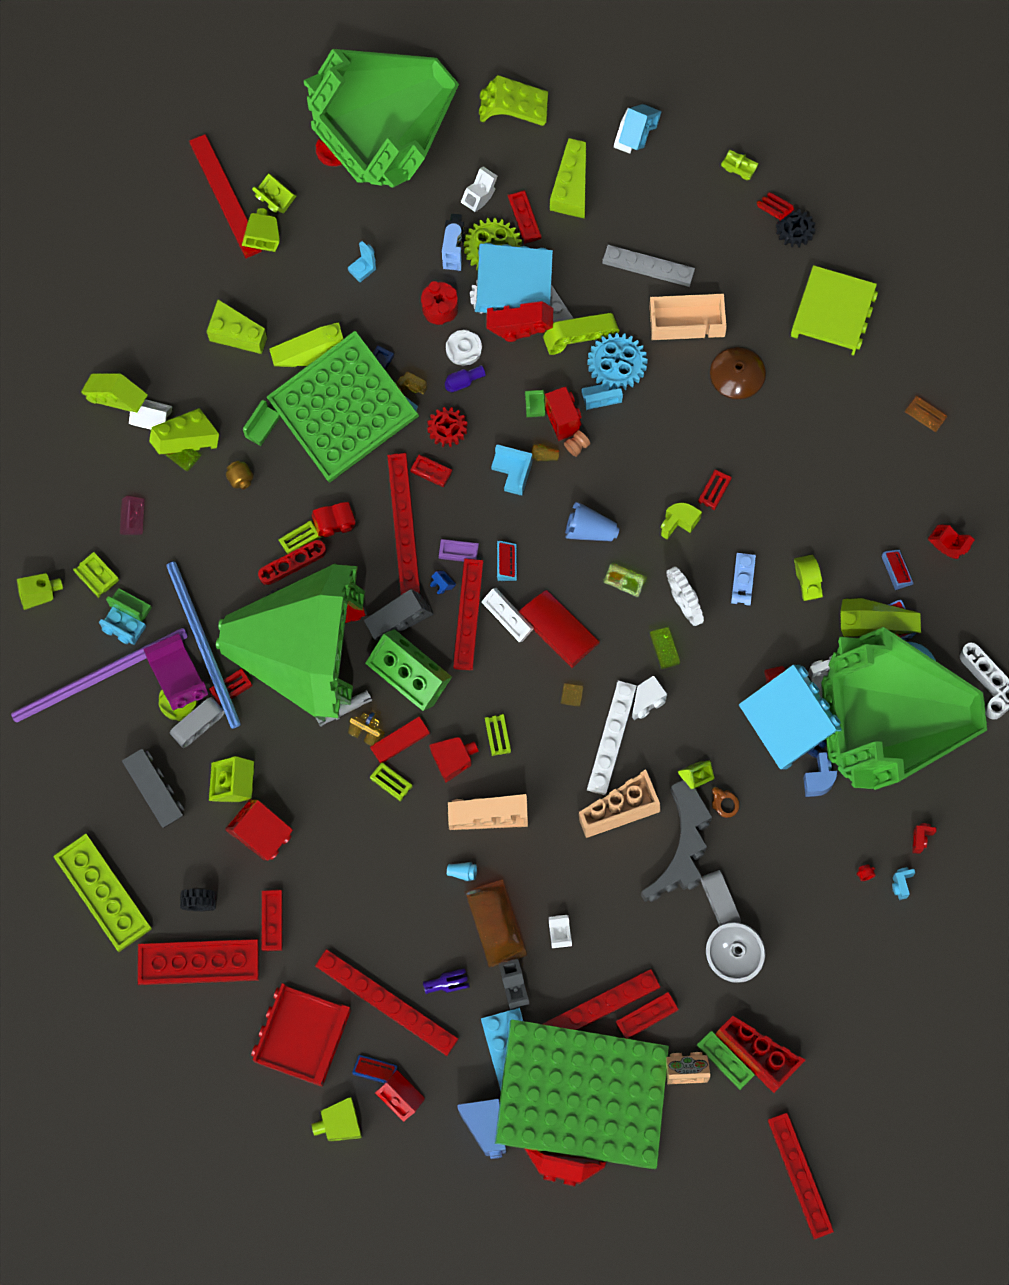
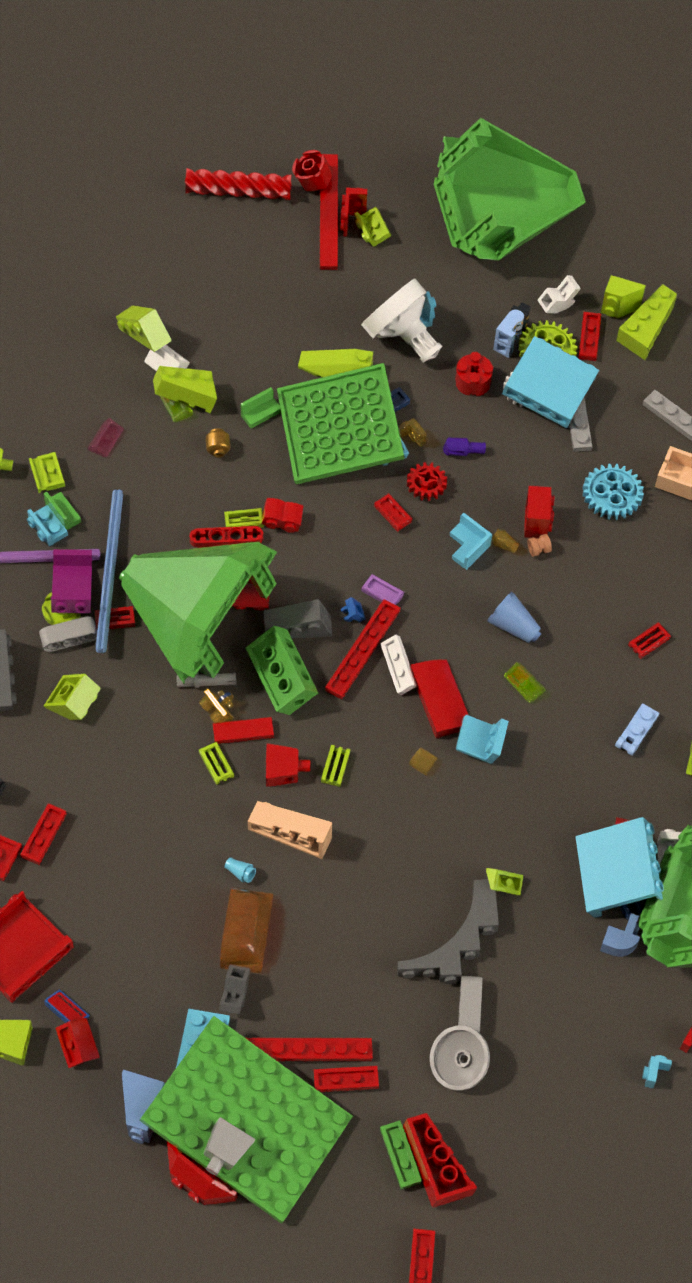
camera: 20 degrees right, 10 degrees down
(128, 206) = (238, 184): none -> red piece
(192, 163) = (312, 171): none -> red brick
(235, 329) = (278, 322): lime wedge -> none
(246, 179) = (354, 201): none -> red bracket
(259, 829) = (74, 750): red slope -> none
(261, 231) = (344, 251): lime torso -> none
(325, 155) = (435, 214): red tile -> none
(348, 277) = (401, 318): none -> white piece
(386, 1002) = (109, 955): red plate -> none
(403, 523) = (345, 544): red plate -> none
(444, 983) = (171, 960): dark purple arm -> none
(463, 347) = (477, 422): white tile -> none
(506, 561) = (421, 618): red slope -> none
(513, 99) = (629, 233): lime bracket -> none
(521, 321) = (538, 417): red wedge -> none
(535, 403) = (517, 494): bright green panel -> none
(537, 167) = (622, 297): none -> lime slope
(560, 931) = (303, 963): white bracket -> none
(579, 330) = (589, 448): lime beam -> none
(581, 1130) = (226, 1146): none -> light grey torso
(598, 396) = (582, 515): medium azure panel -> none
(611, 738) = (440, 815): white plate -> none
(615, 651) = (481, 738): none -> medium azure bracket
(626, 804) = (416, 878): light nougat wedge -> none
(648, 695) = (492, 793): white slope -> none
(664, 648) = (531, 757): clear neon green plate -> none
(680, 515) = (604, 647): lime brick -> none
(685, 596) = (571, 716): white gear -> none
(687, 1068) = (358, 1144): light nougat slope -> none
(718, 796) = (517, 910): dark orange piece -> none
(865, 872) = (623, 1045): red plate -> none

